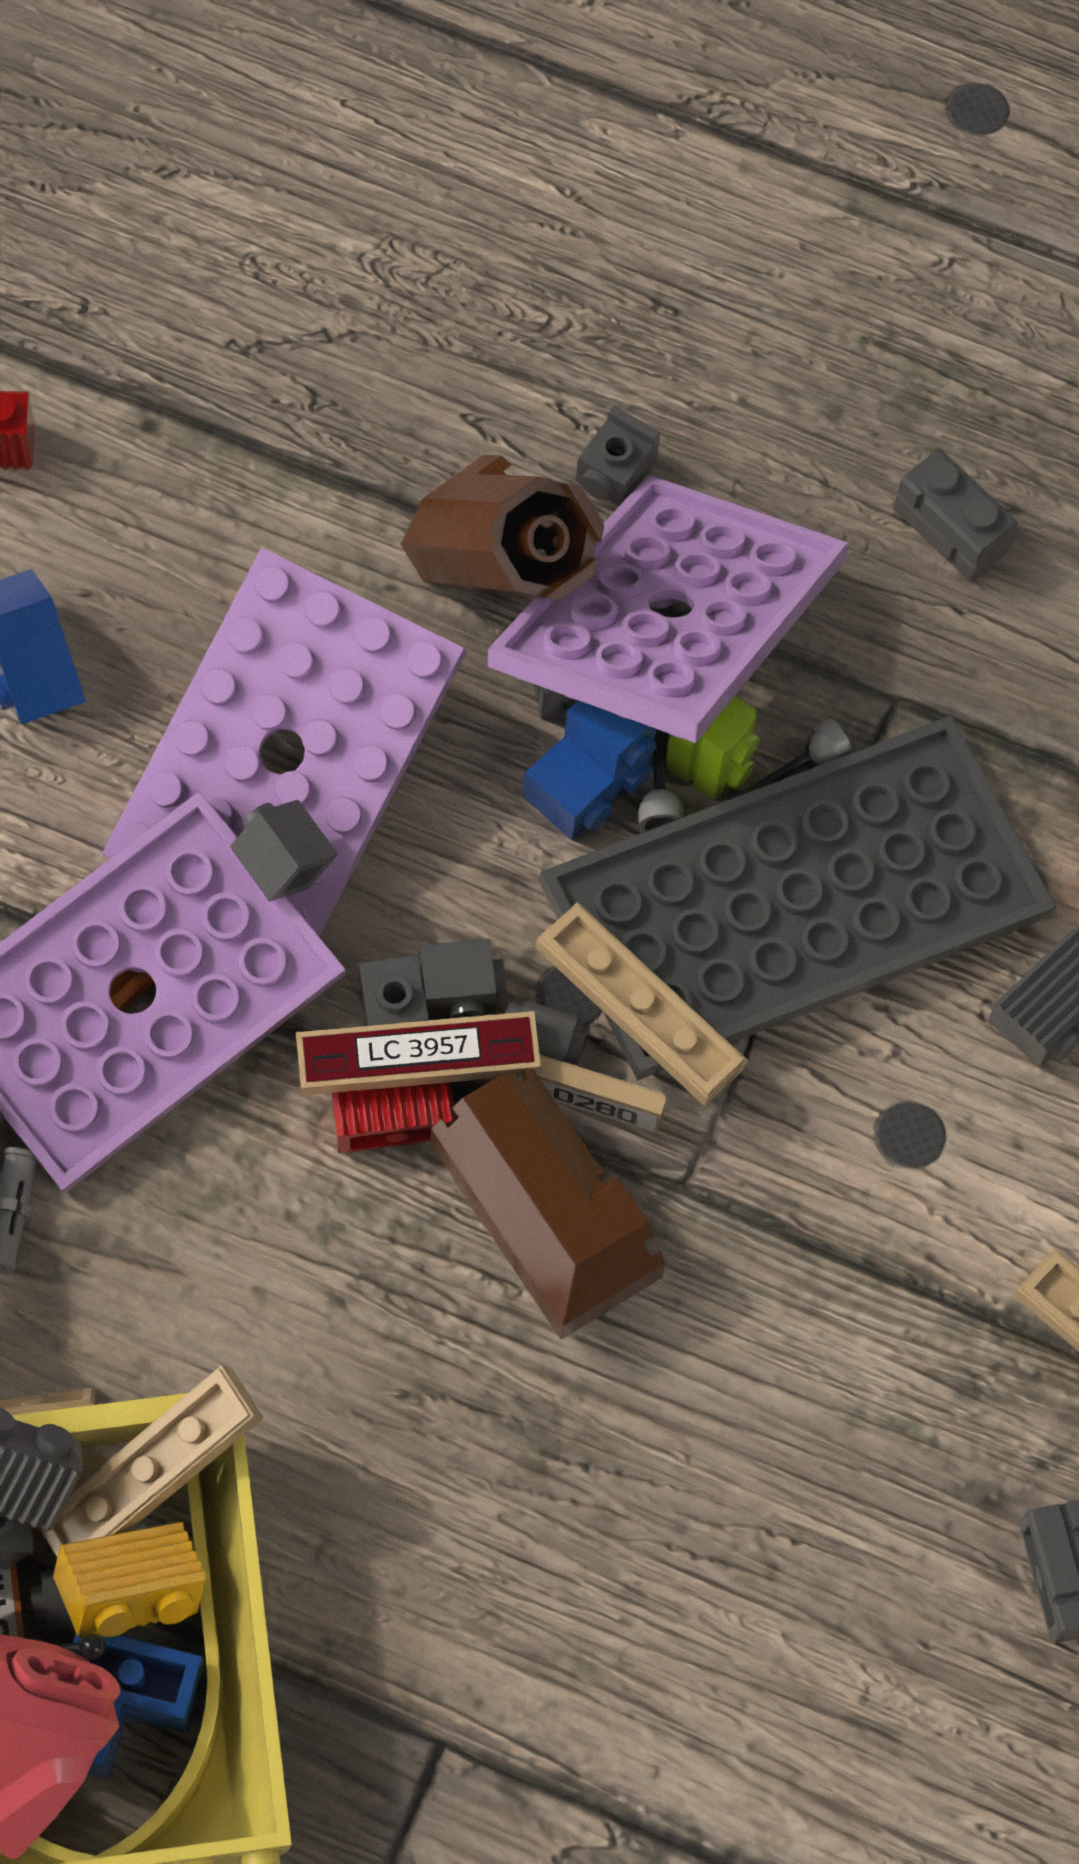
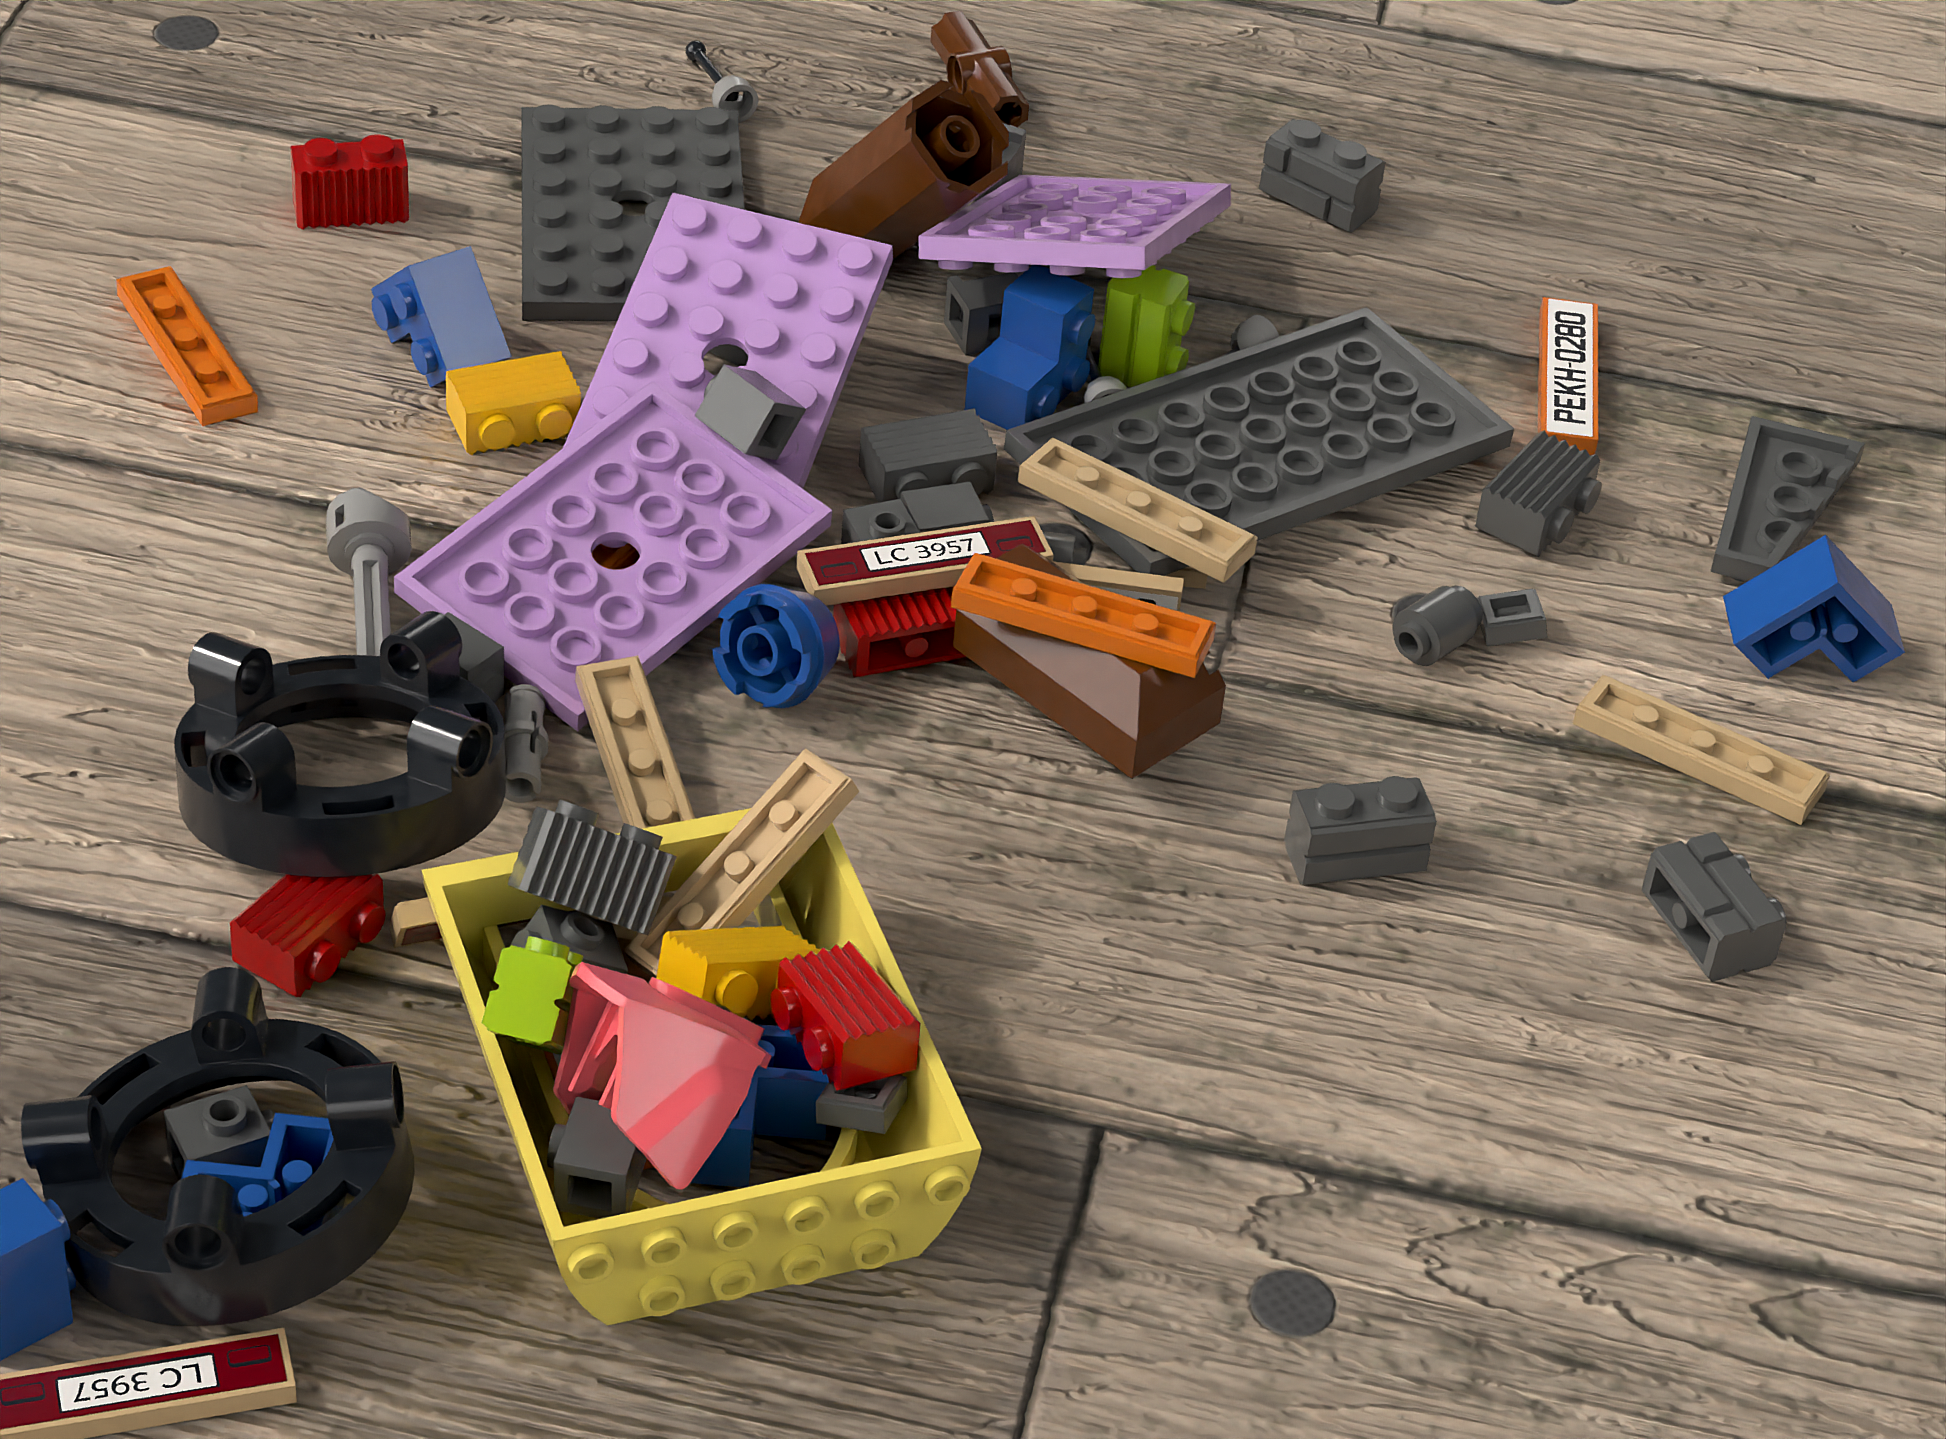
camera: 10 degrees left, 25 degrees down
(79, 759) = (512, 401): none -> yellow brick
(107, 1264) = (632, 743): none -> tan tile
(204, 1665) = (845, 1017): none -> red brick
(208, 1743) = (863, 1107): none -> dark grey tile
(232, 405) = (577, 168): none -> dark grey plate
(261, 1134) = (776, 645): none -> blue cone
(381, 326) = (726, 88): none -> light grey hinge
(464, 883) = (927, 454): none -> dark grey brick
(536, 1187) = (1084, 615): none -> orange tile
(640, 318) = (978, 67): none -> reddish brown piece
(760, 1434) = (1359, 830): none -> dark grey brick
(907, 1166) = (1436, 624): none -> dark grey brick
(985, 1160) = (1512, 617): none -> dark grey tile

